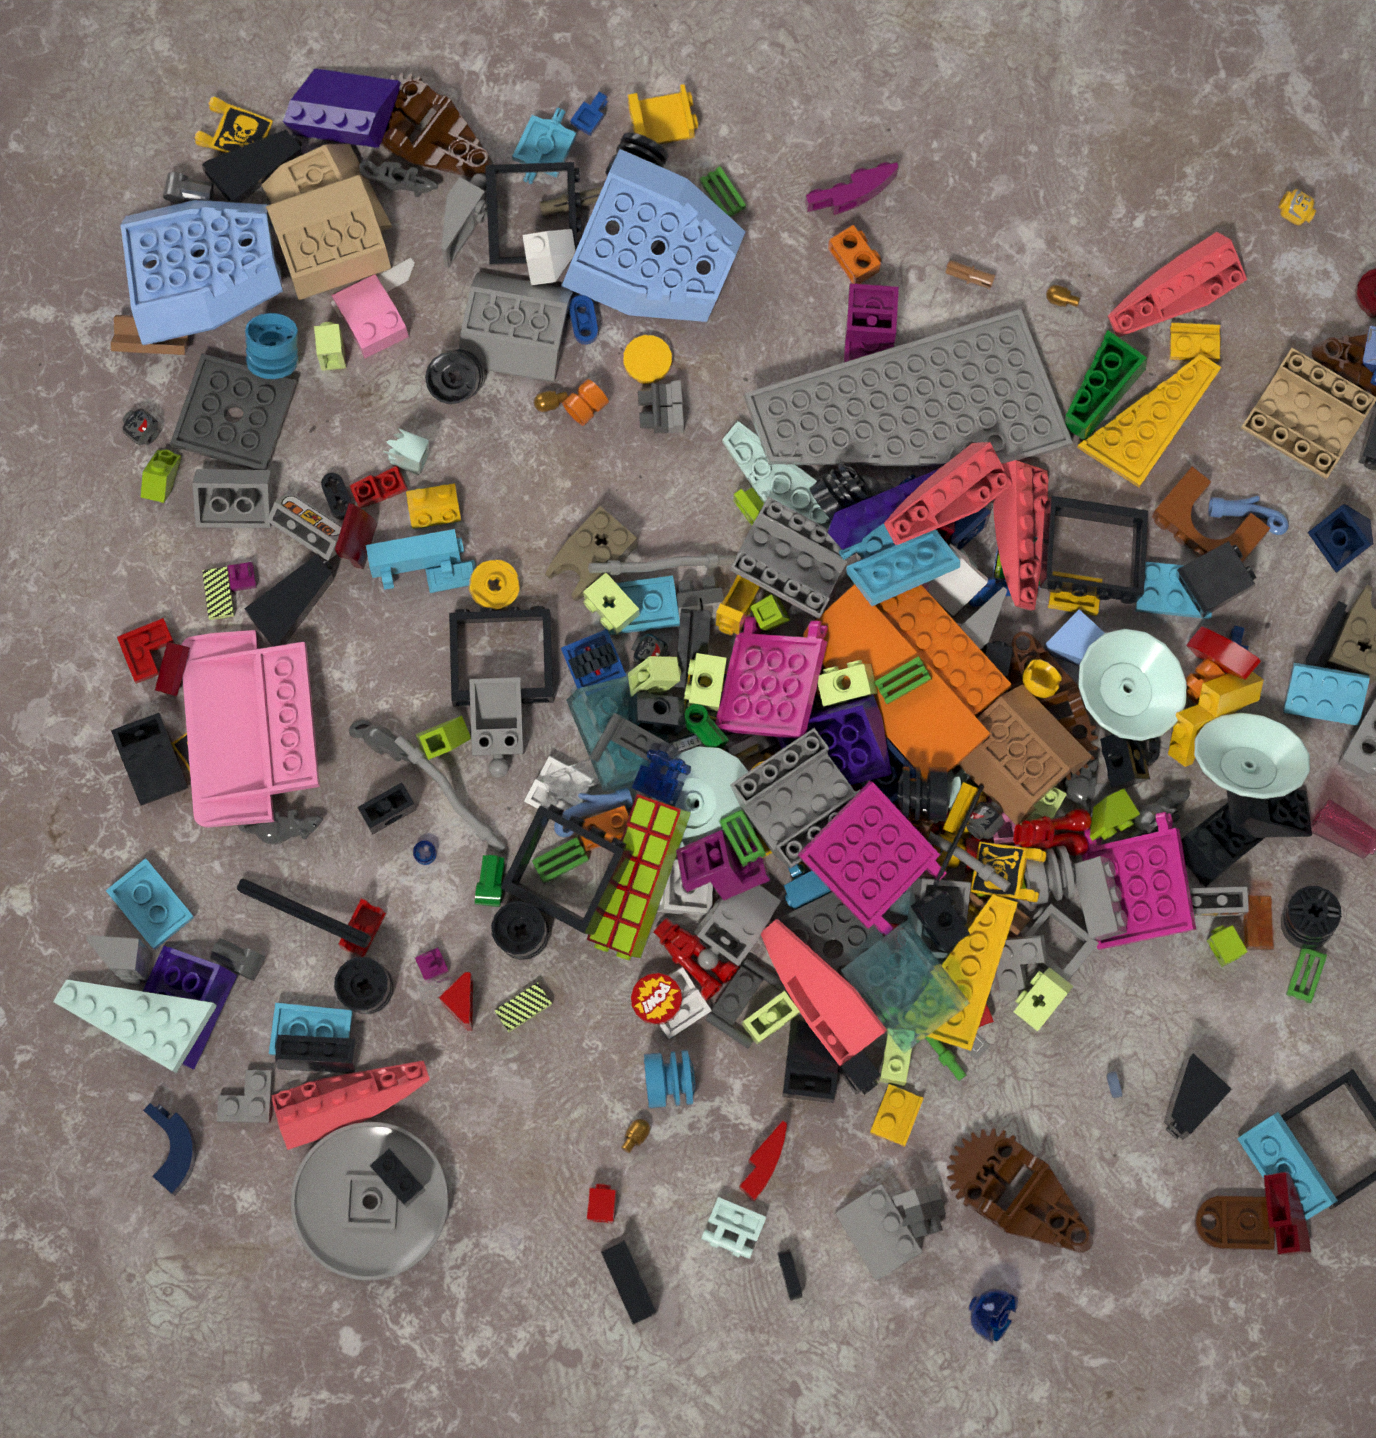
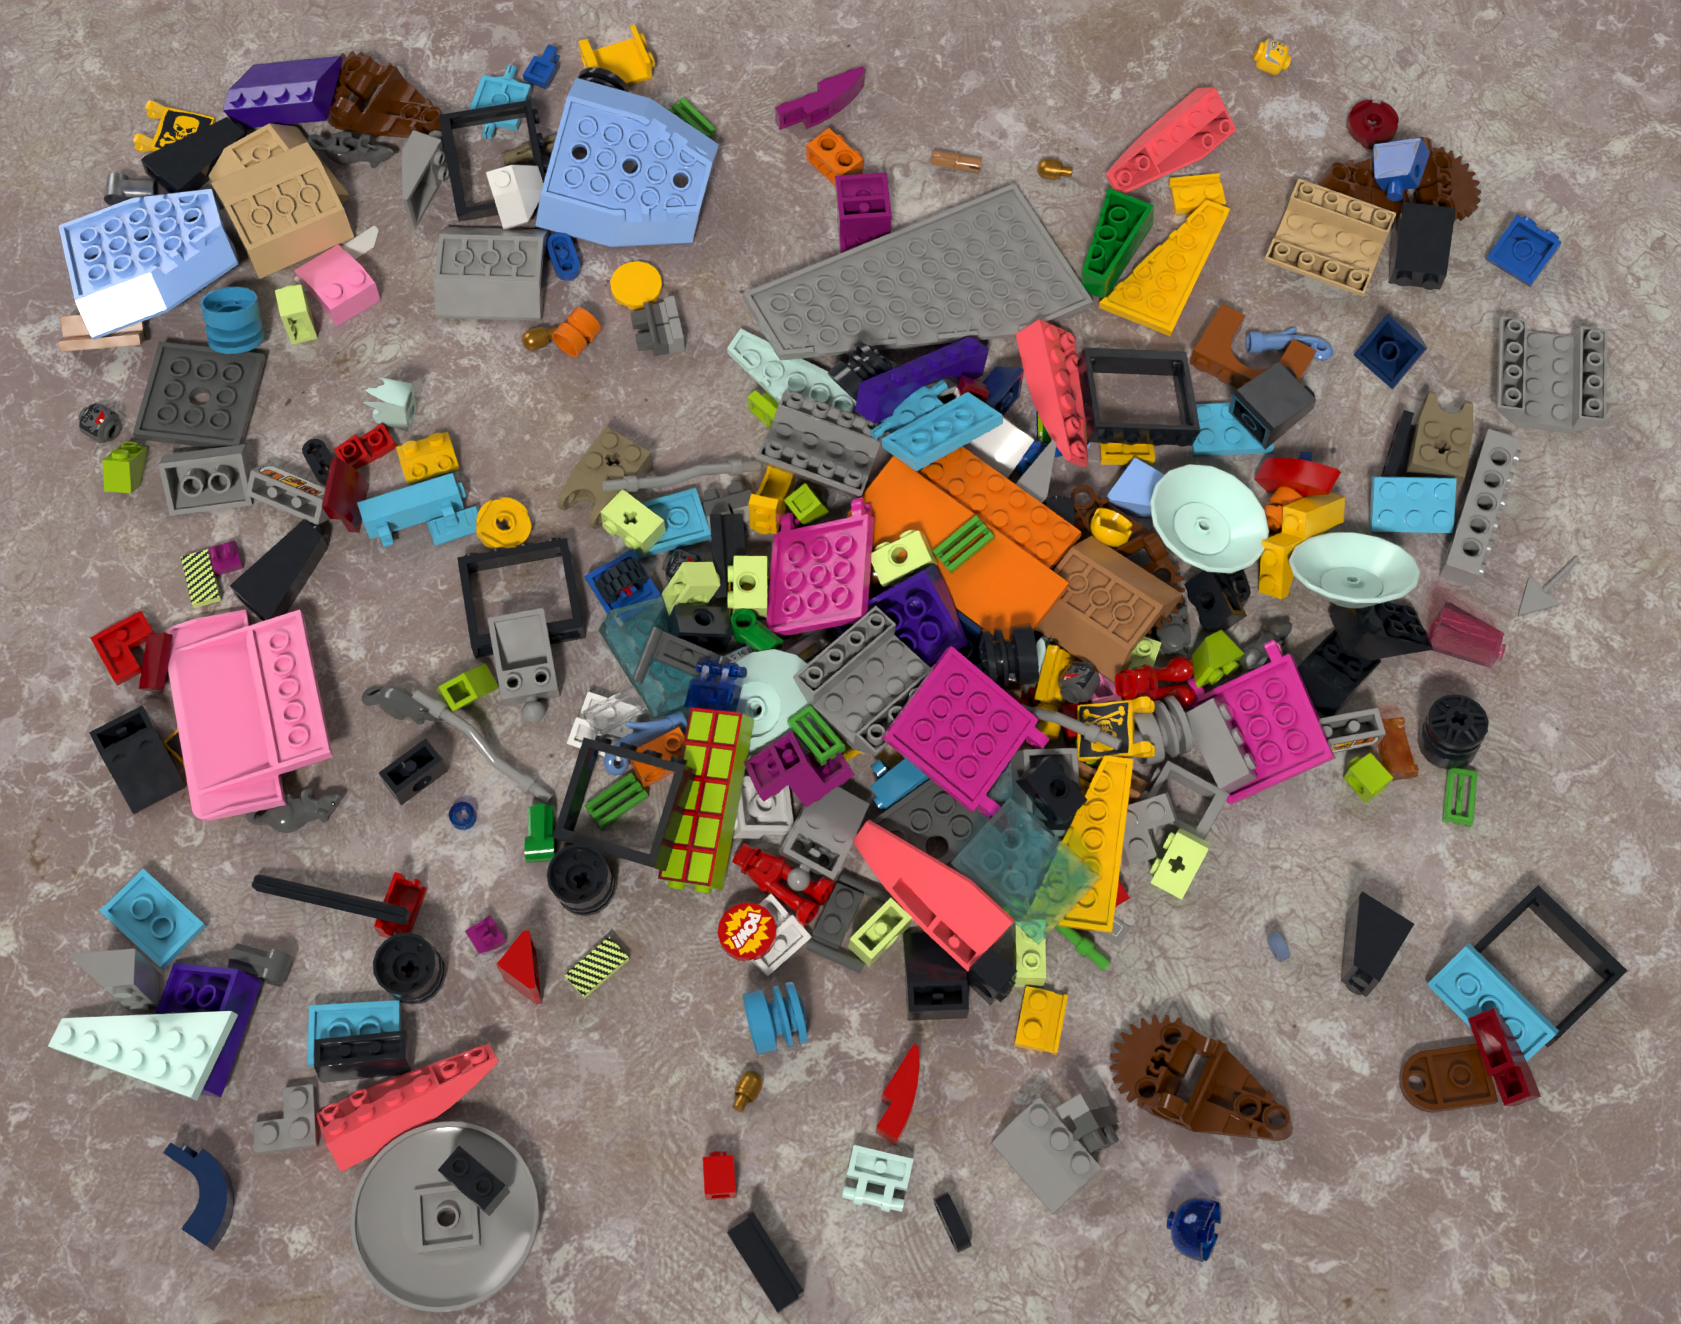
camera: 10 degrees left, 10 degrees down
(442, 381) = (421, 313): black wheel -> none
(950, 493) = (980, 354): coral wedge -> none
(958, 836) = (1054, 699): black piece -> none

